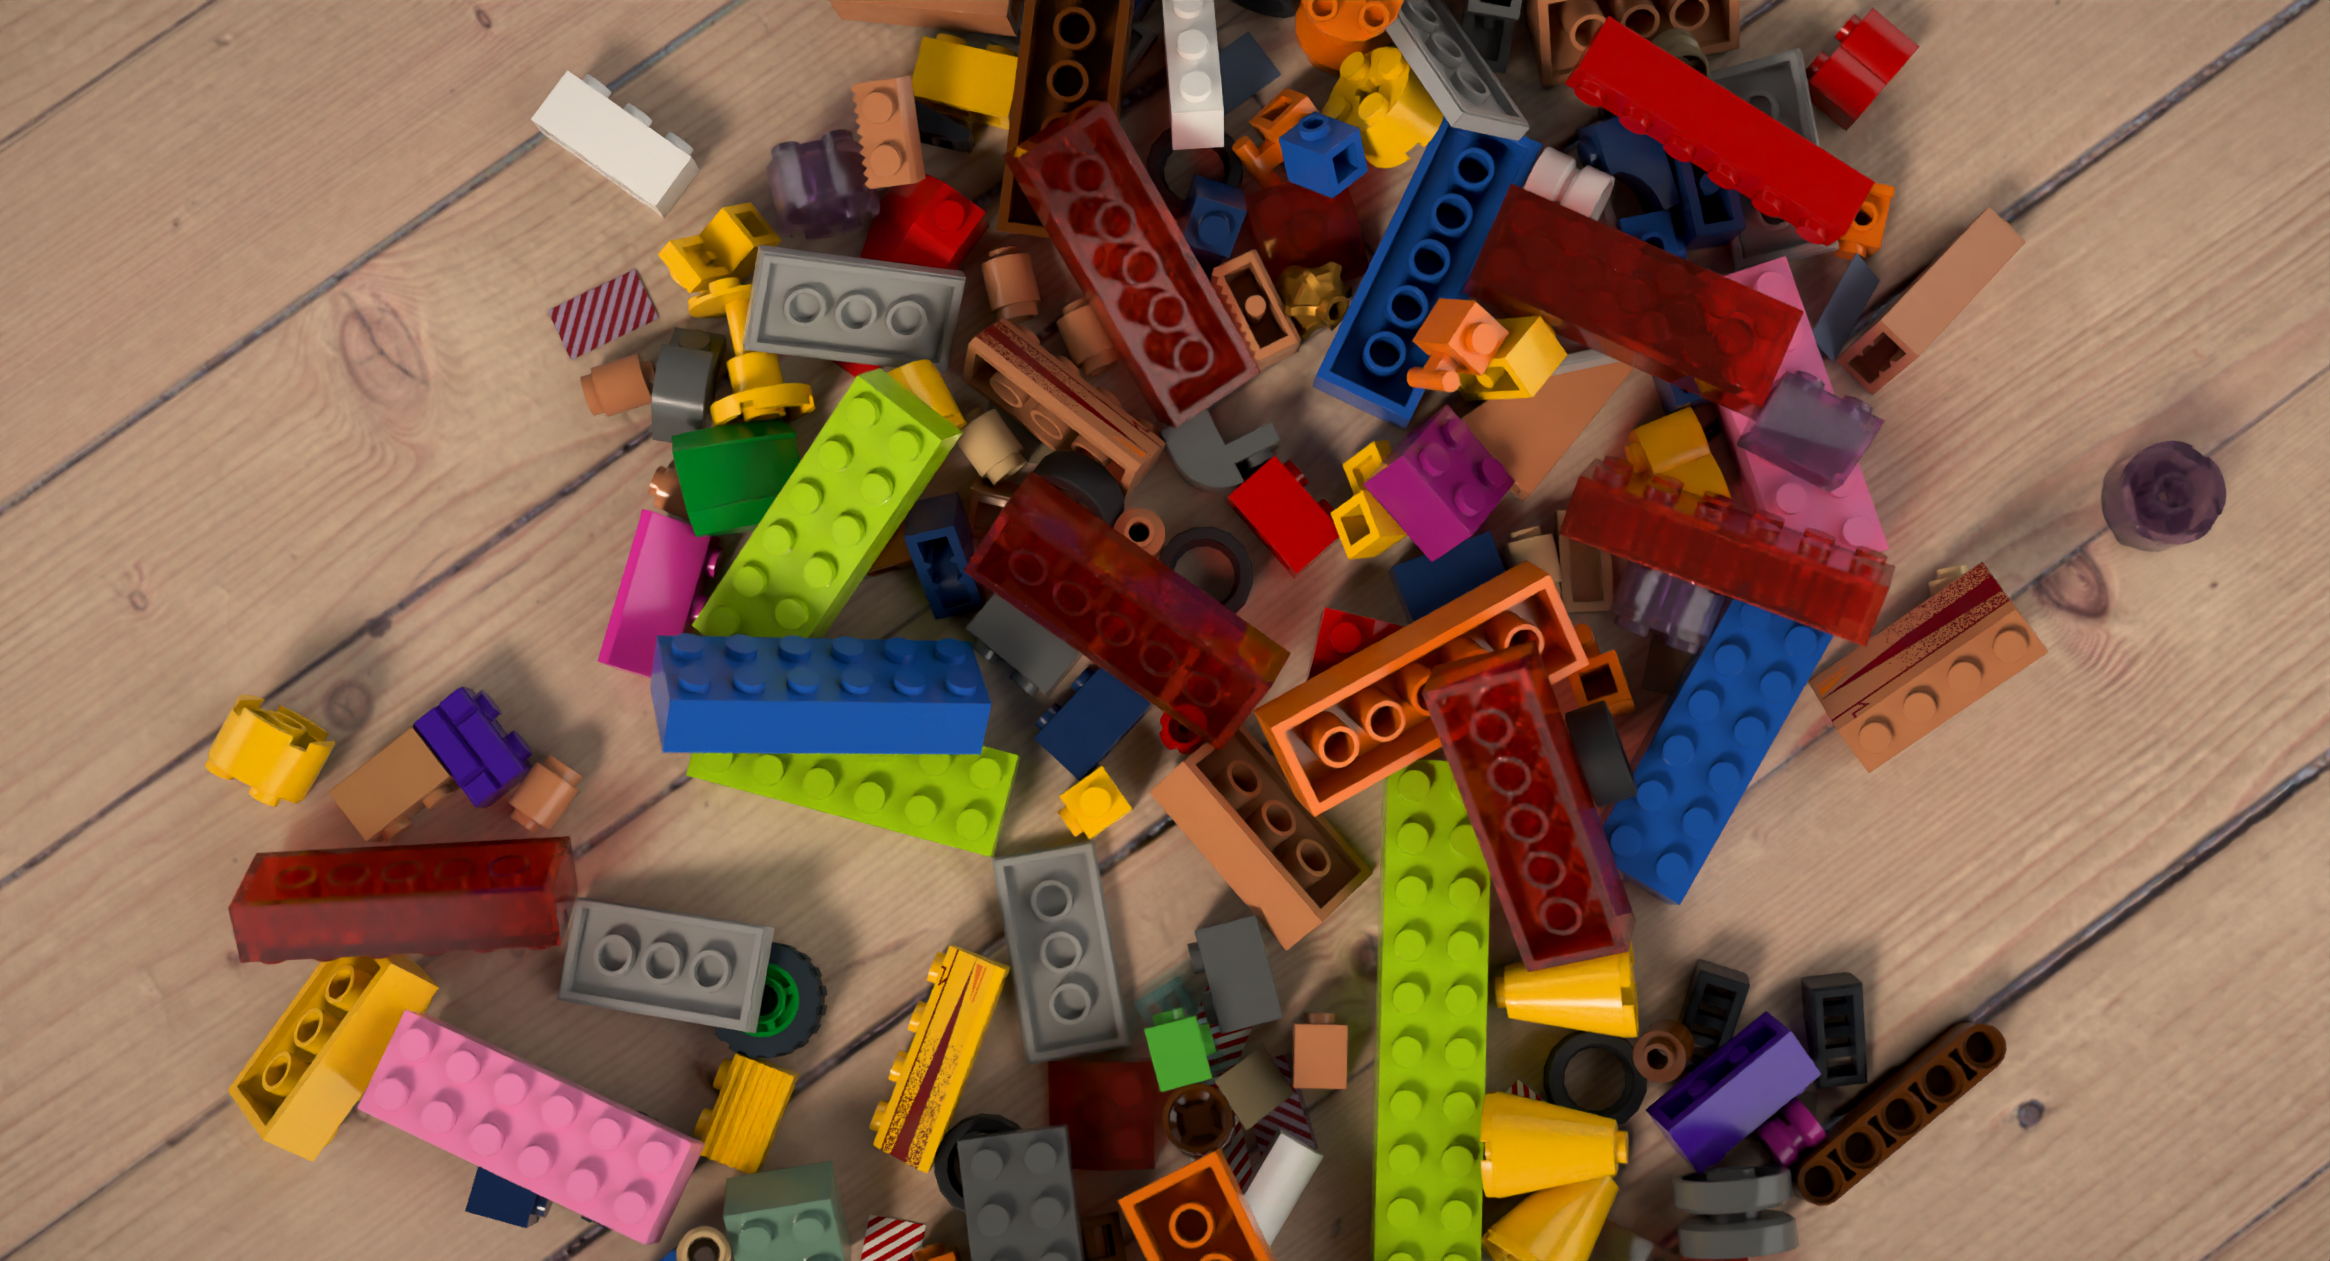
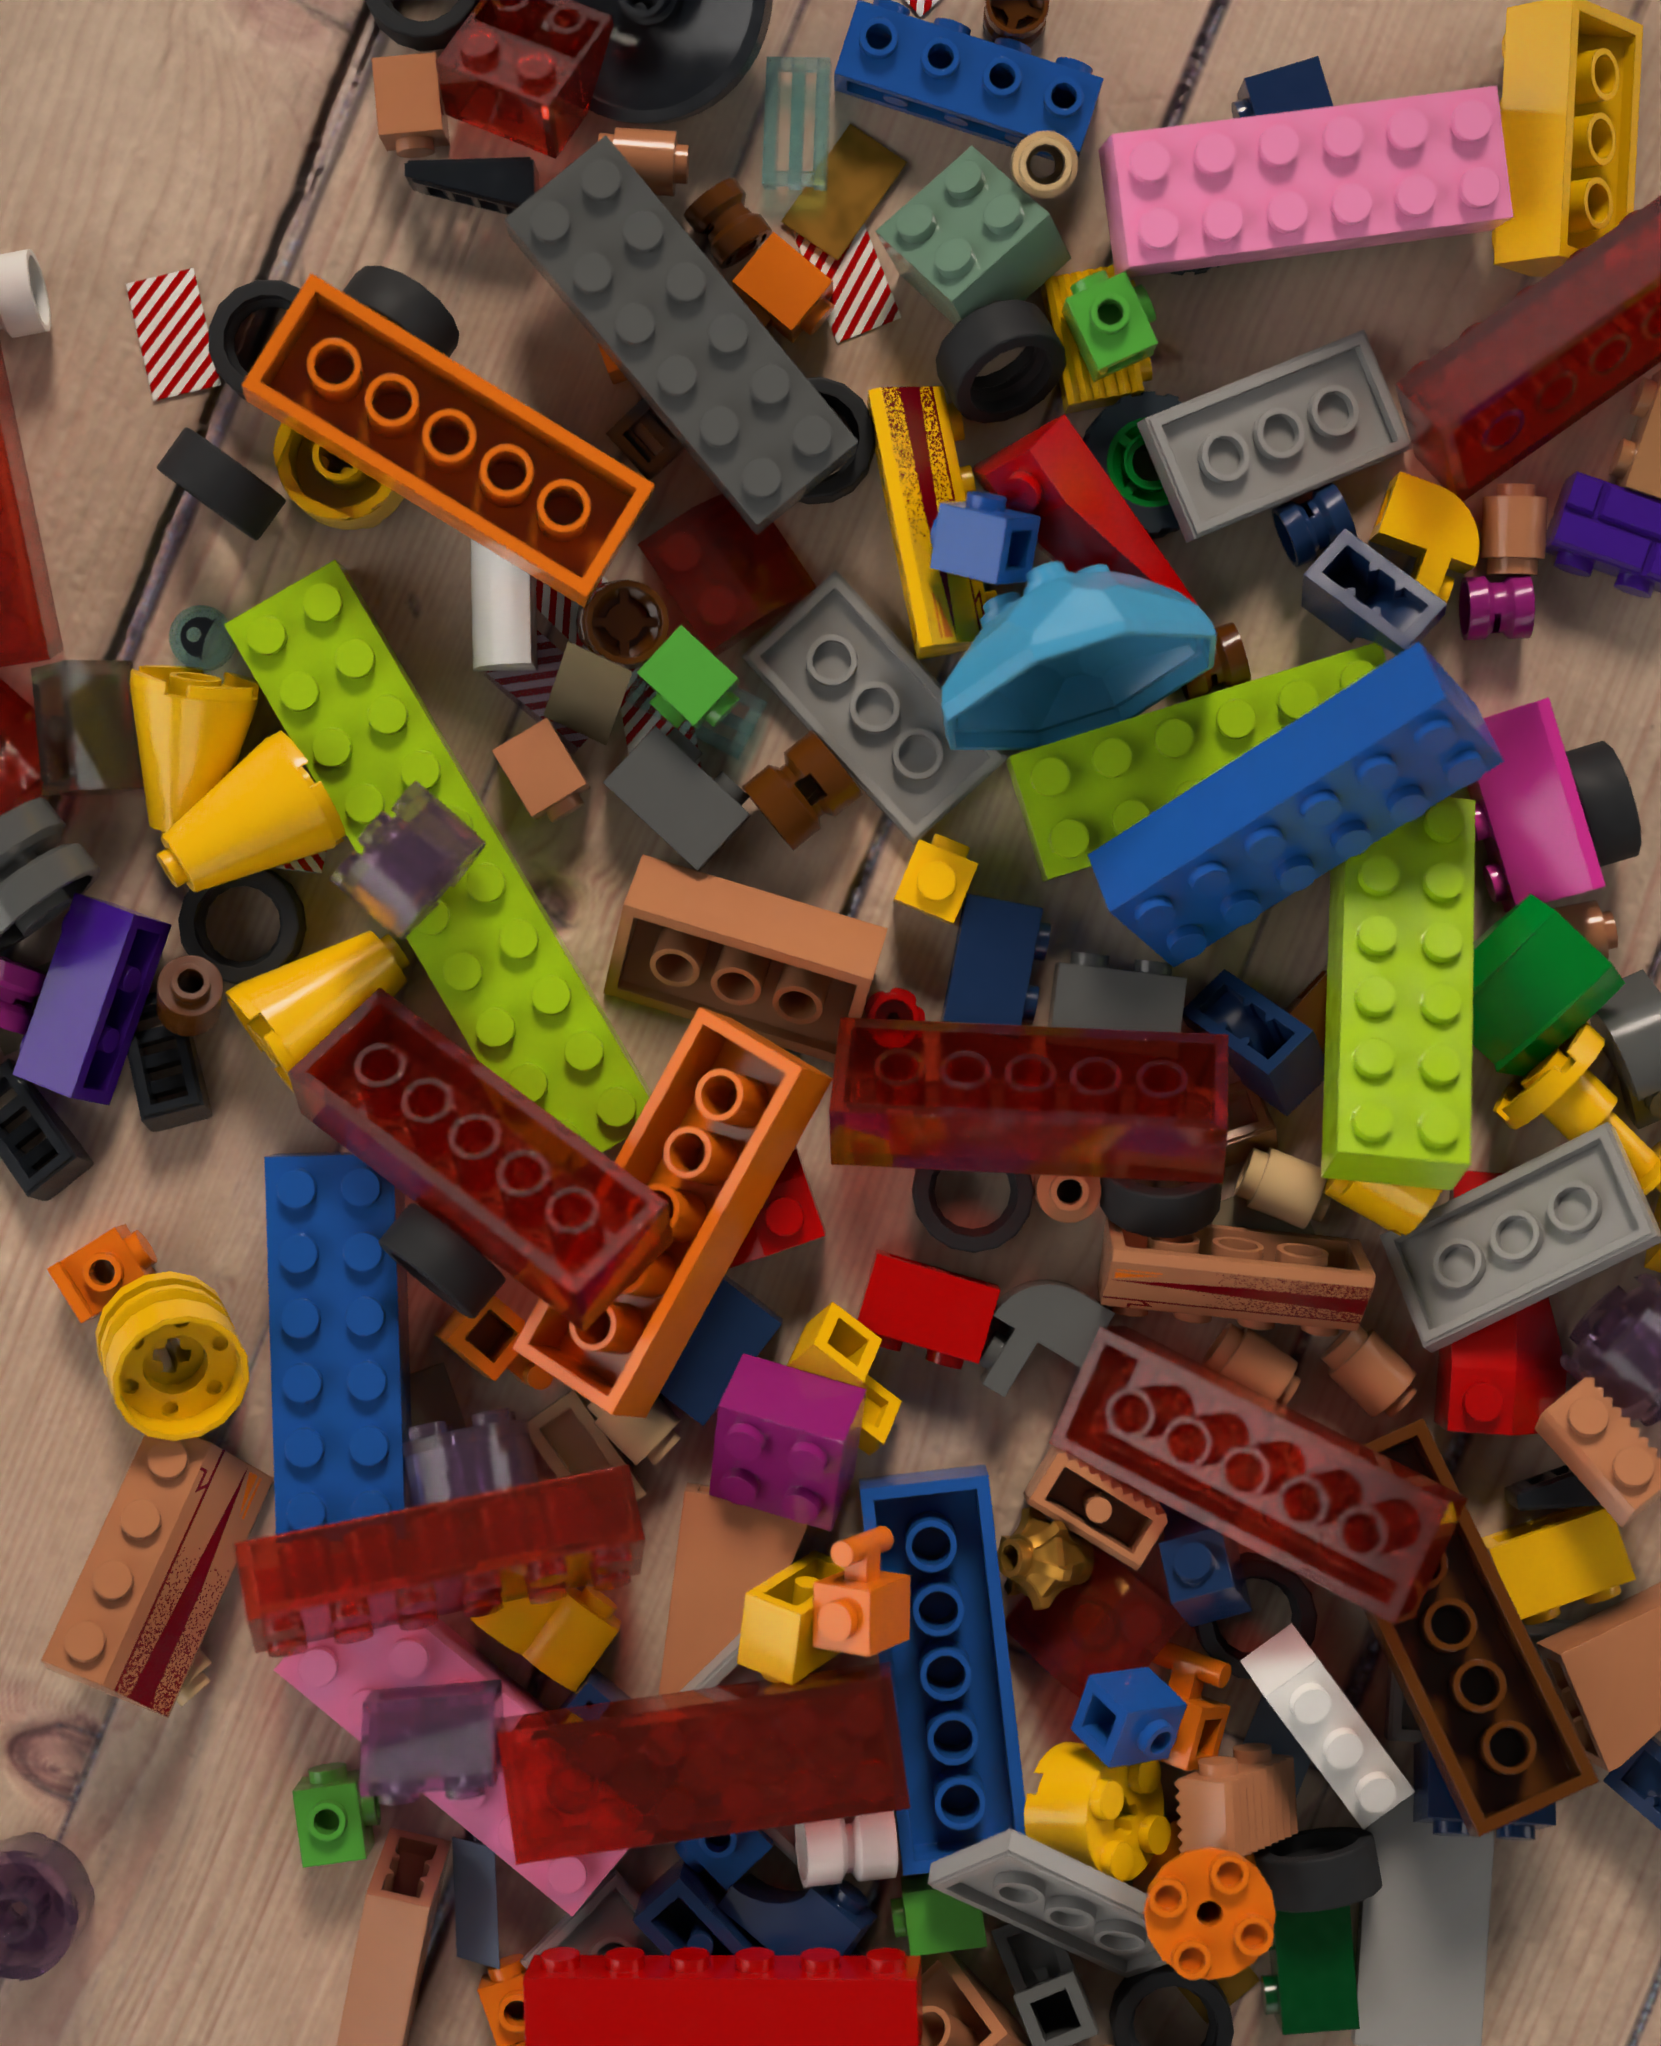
camera: 155 degrees right, 5 degrees up
(591, 749) = (1496, 607): none -> magenta wheel
(597, 826) = (1428, 525): none -> yellow brick
(604, 567) = (1606, 802): none -> black tyre
(673, 809) = (1369, 596): none -> dark blue arch
(678, 885) = (1313, 524): none -> dark blue wheel
(729, 1114) = (1110, 322): none -> bright green brick
(810, 836) = (1229, 667): none -> reddish brown wheel
(821, 1159) = (984, 337): none -> black tyre
(838, 998) = (1079, 506): none -> red wedge
(904, 896) = (1072, 658): none -> dark azure rock
(913, 1015) = (984, 539): none -> blue brick
(1166, 920) = (785, 805): none -> reddish brown wheel
(1284, 54) = (1238, 1801): none -> nougat brick
(1454, 1045) = (408, 860): none -> brick
(1539, 102) = (935, 1919): none -> bright green brick
(1829, 807) = (171, 1356): none -> yellow wheel
(1861, 896) = (80, 1283): none -> orange brick
(1908, 425) = (332, 1816): none -> bright green brick

